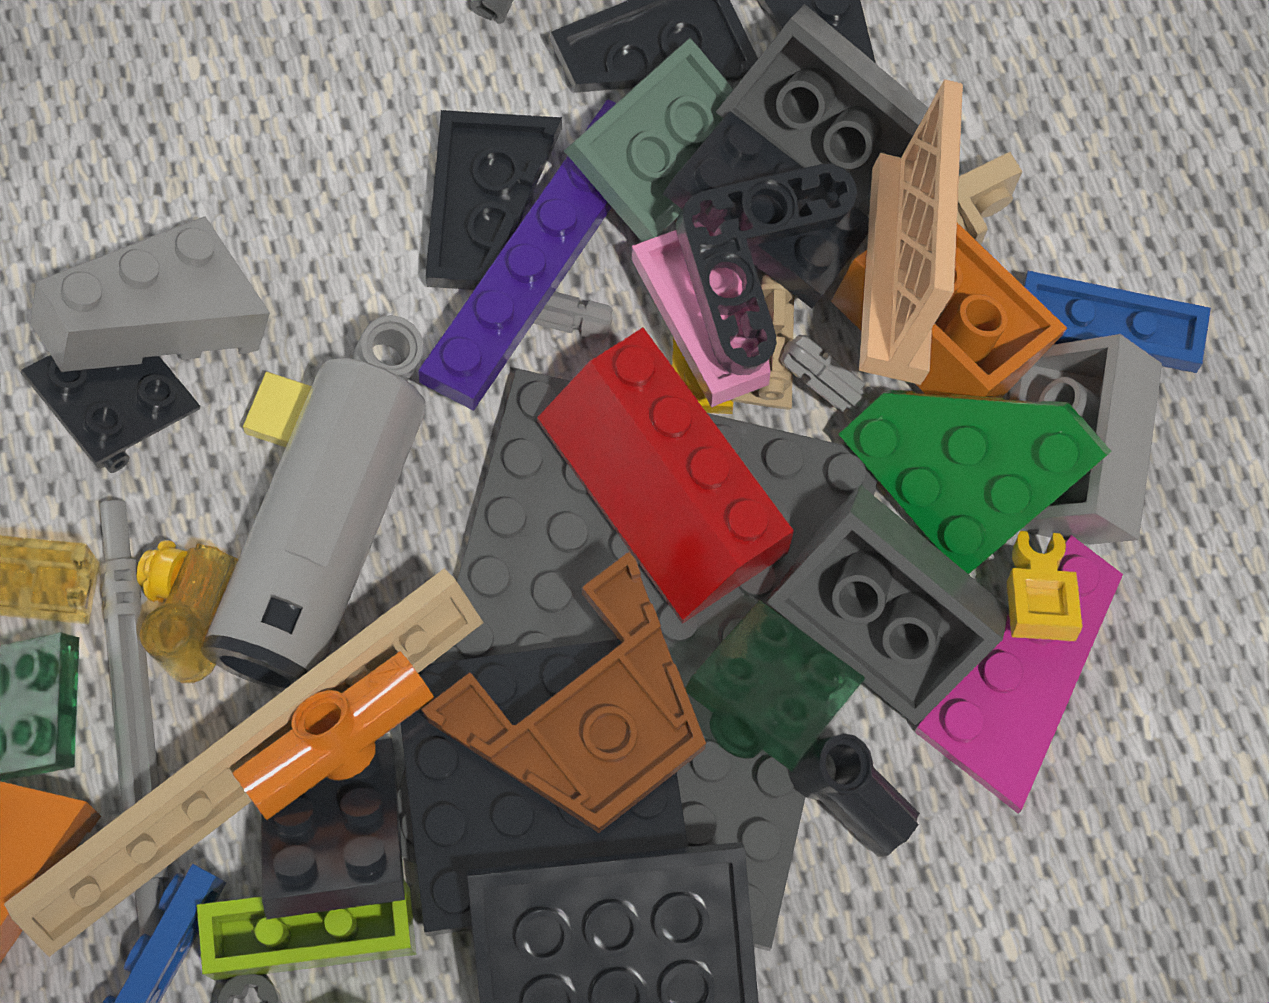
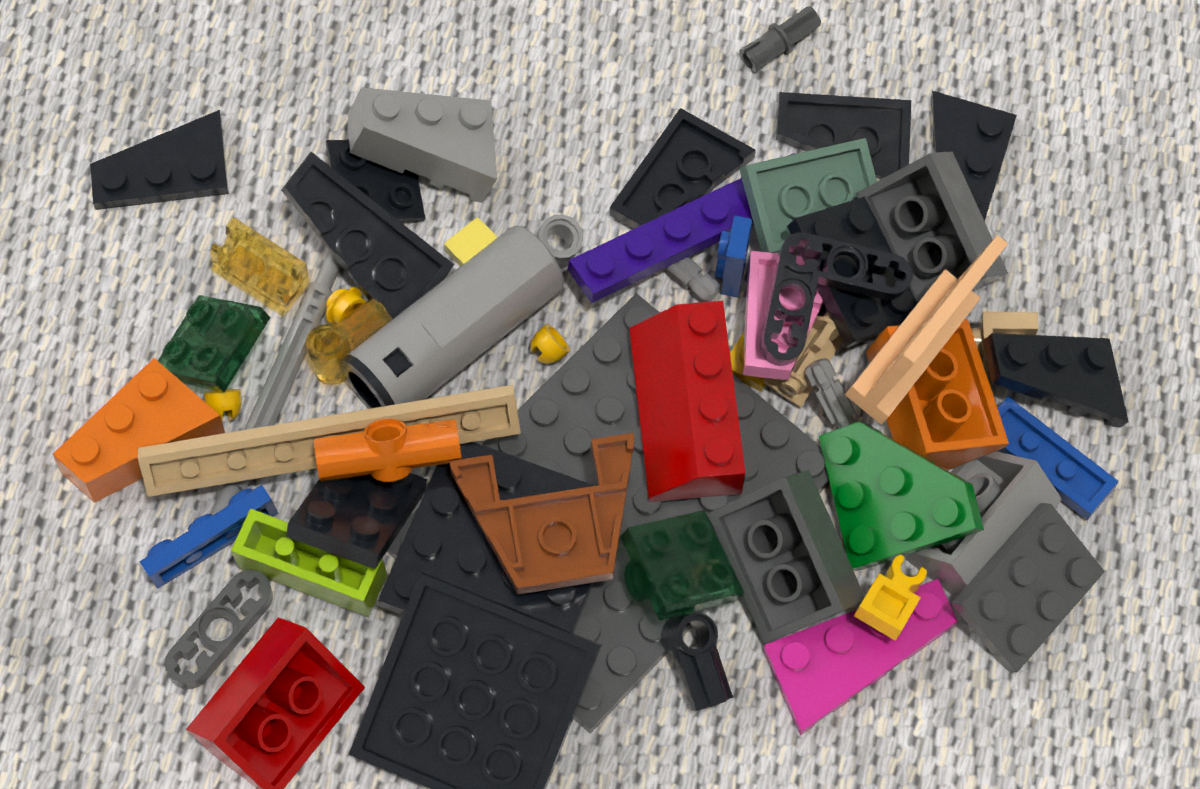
camera: 30 degrees right, 5 degrees down
(73, 781) = (228, 401): none -> yellow hinge
(147, 473) = (365, 239): none -> black wing
(446, 486) = (550, 343): none -> yellow hinge
(616, 263) = (733, 256): none -> blue plate
(1071, 207) = (1060, 368): none -> black wing
(1184, 491) = (1028, 587): none -> dark grey plate

